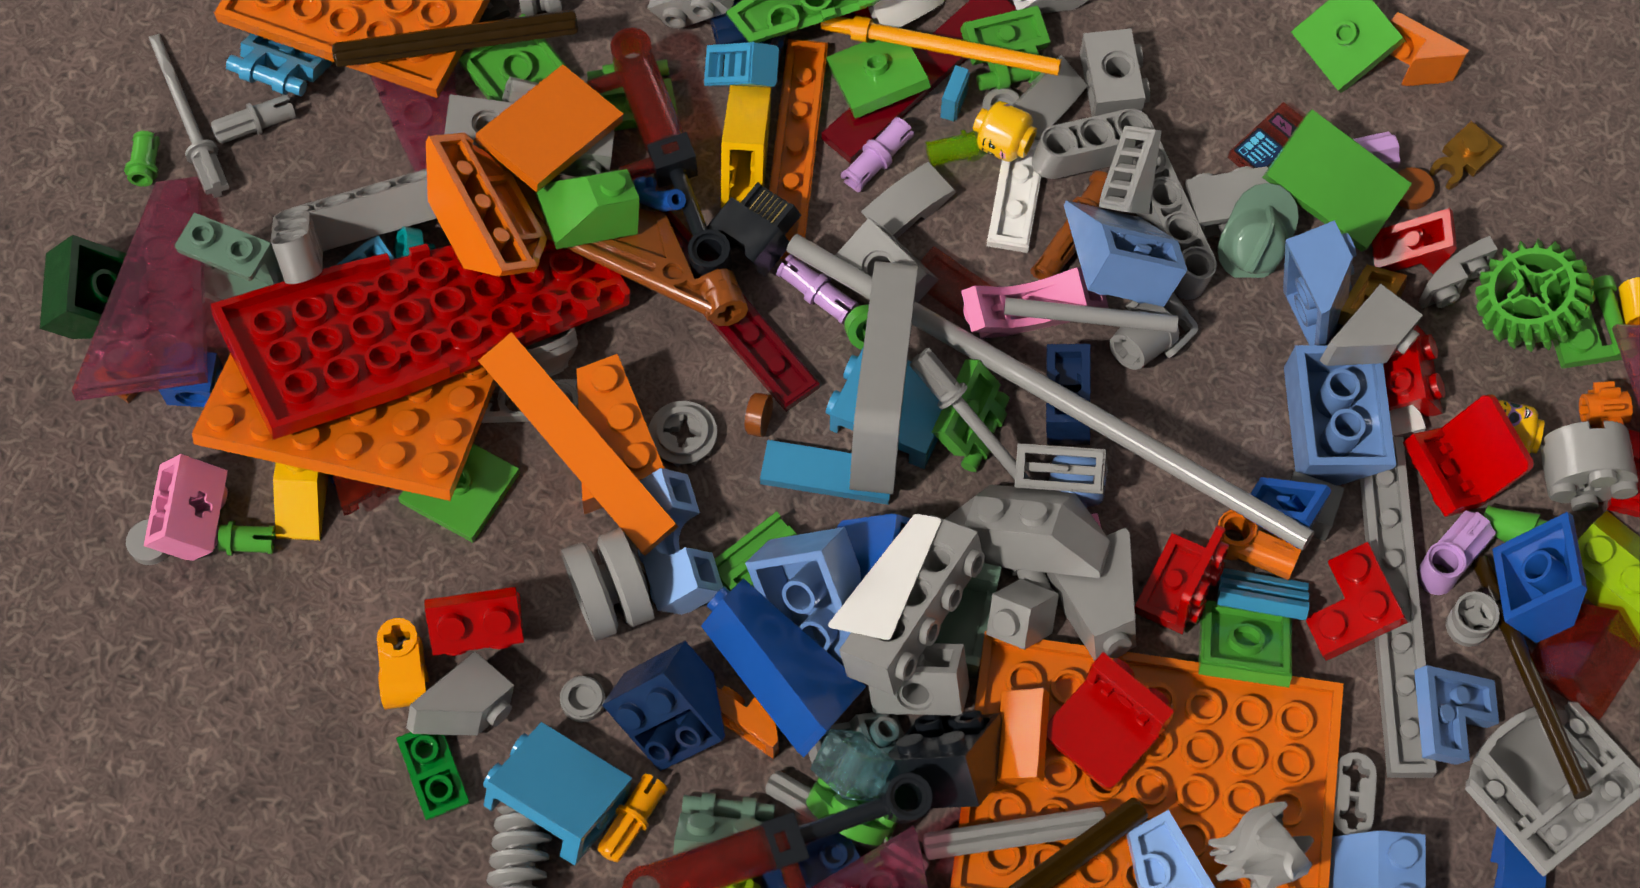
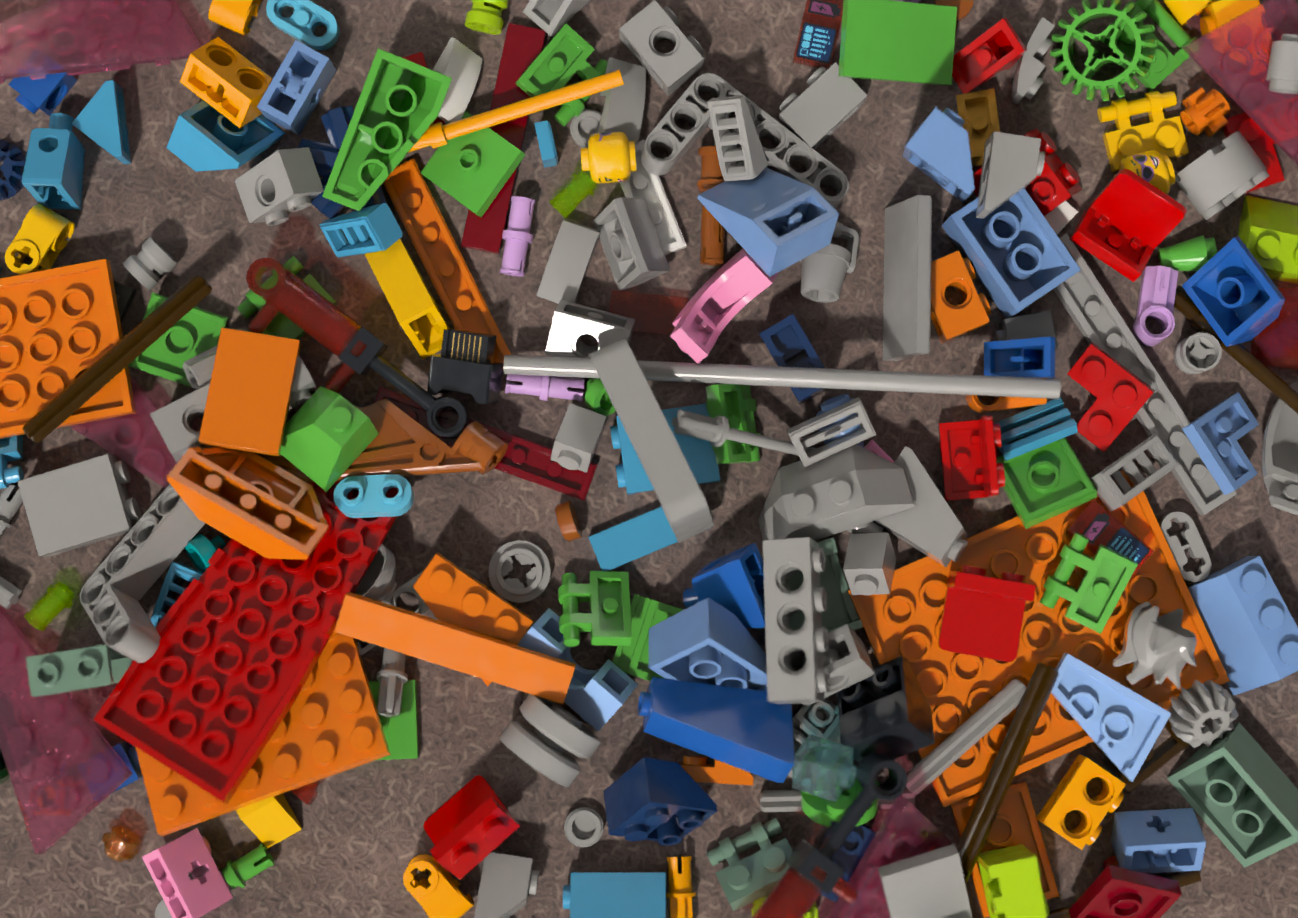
camera: 30 degrees left, 20 degrees up
(149, 448) = (116, 847): none -> clear orange plate
(245, 213) = (53, 602): none -> clear neon green pin
(331, 144) = (79, 504): none -> light grey brick
(500, 448) = (391, 683): none -> light grey axle
(592, 278) = (372, 496): none -> medium azure plate
(660, 200) = (372, 391): blue arm -> none
(743, 505) = (608, 605): none -> bright green plate
(817, 345) = (578, 438): none -> light grey brick
(883, 592) = (770, 632): white sticker -> none
(979, 211) = (630, 242): none -> light grey slope
(1023, 735) = (928, 660): orange tile -> none
(1091, 315) = (779, 288): light grey bar -> none
(1222, 379) = (907, 278): none -> light grey tile
(1239, 766) = (1099, 588): none -> bright green plate
(1258, 231) = (861, 124): sand green piece -> none
(1260, 406) = (957, 320): none -> orange brick
(1278, 735) = (1107, 530): none -> tile
(1312, 692) = (1114, 488): none -> light grey slope
(1550, 404) = (1159, 134): none -> yellow plate

